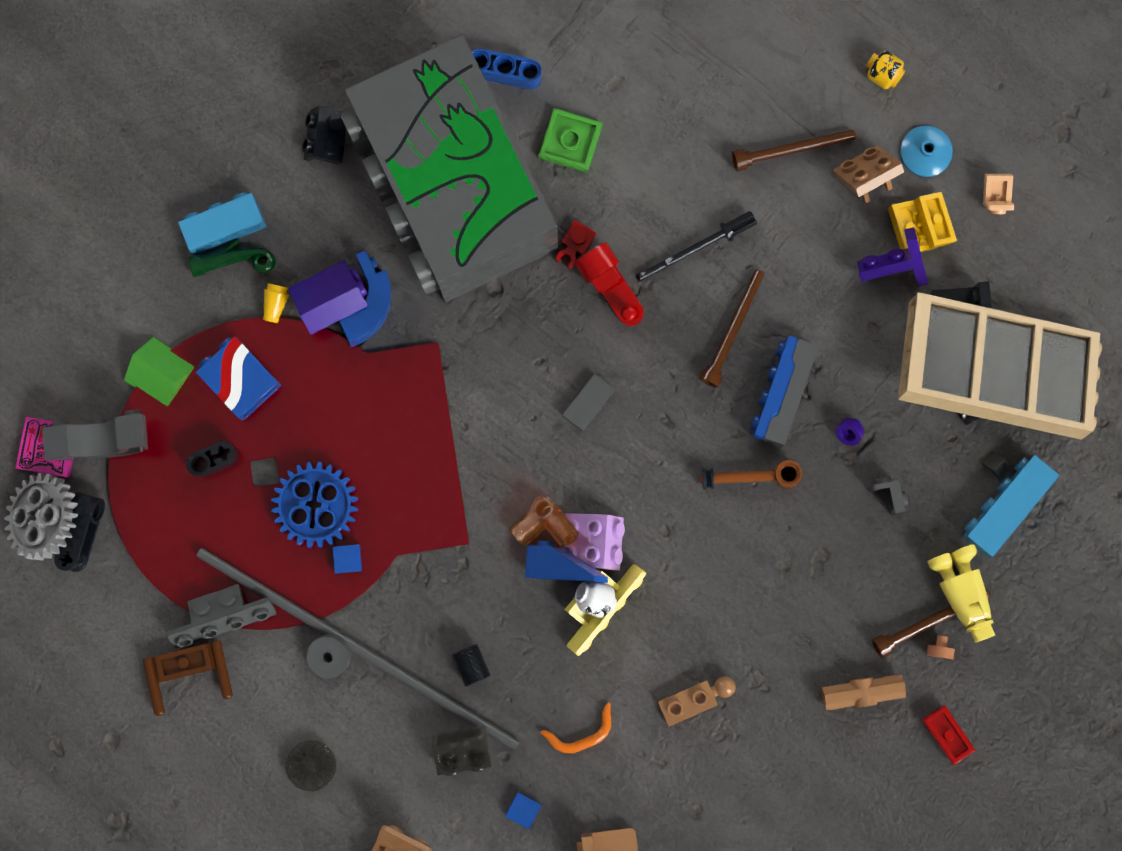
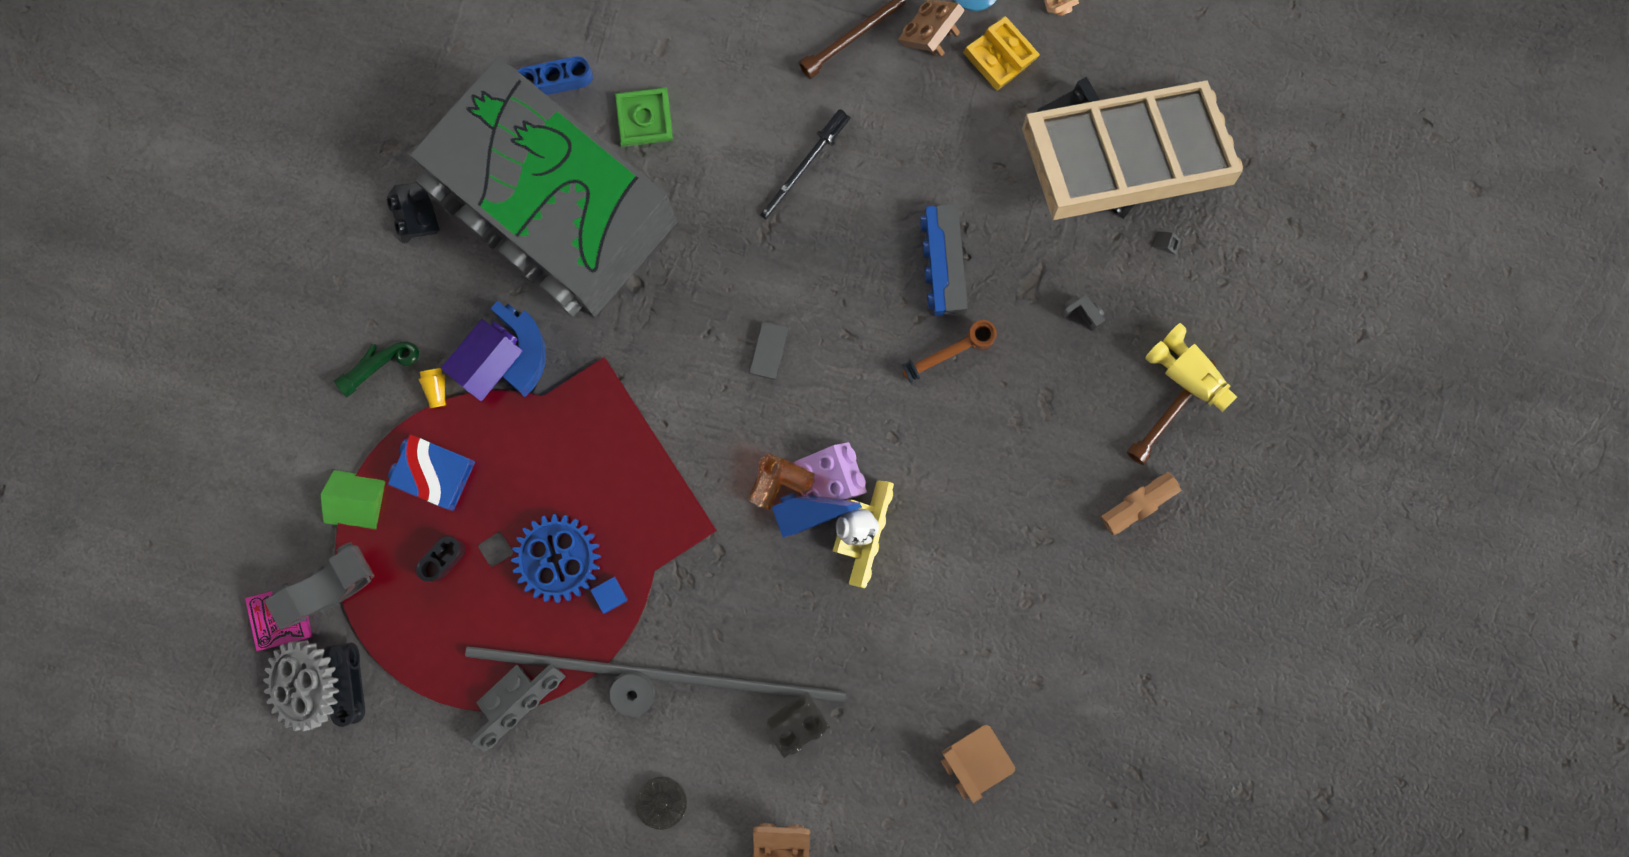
camera: 25 degrees left, 0 degrees up
(183, 664) = (498, 763): reddish brown plate -> none
(222, 223) = (351, 335): dark azure brick -> none
(471, 665) = (769, 641): black piece -> none
(523, 810) = (877, 754): blue tile -> none
(577, 241) = (691, 206): red plate -> none
(586, 742) = (906, 666): orange animal -> none
(601, 269) = (724, 221): red piece -> none
(695, 699) = (990, 579): medium nougat plate -> none
(712, 374) = (872, 274): reddish brown piece -> none
(850, 431) = (1021, 271): dark purple tile -> none
(895, 261) = (994, 96): dark purple bracket -> none
(941, 649) = (1193, 433): nougat tile -> none
(948, 735) = (1235, 507): red plate -> none
(1010, 505) = (1197, 273): dark azure brick -> none

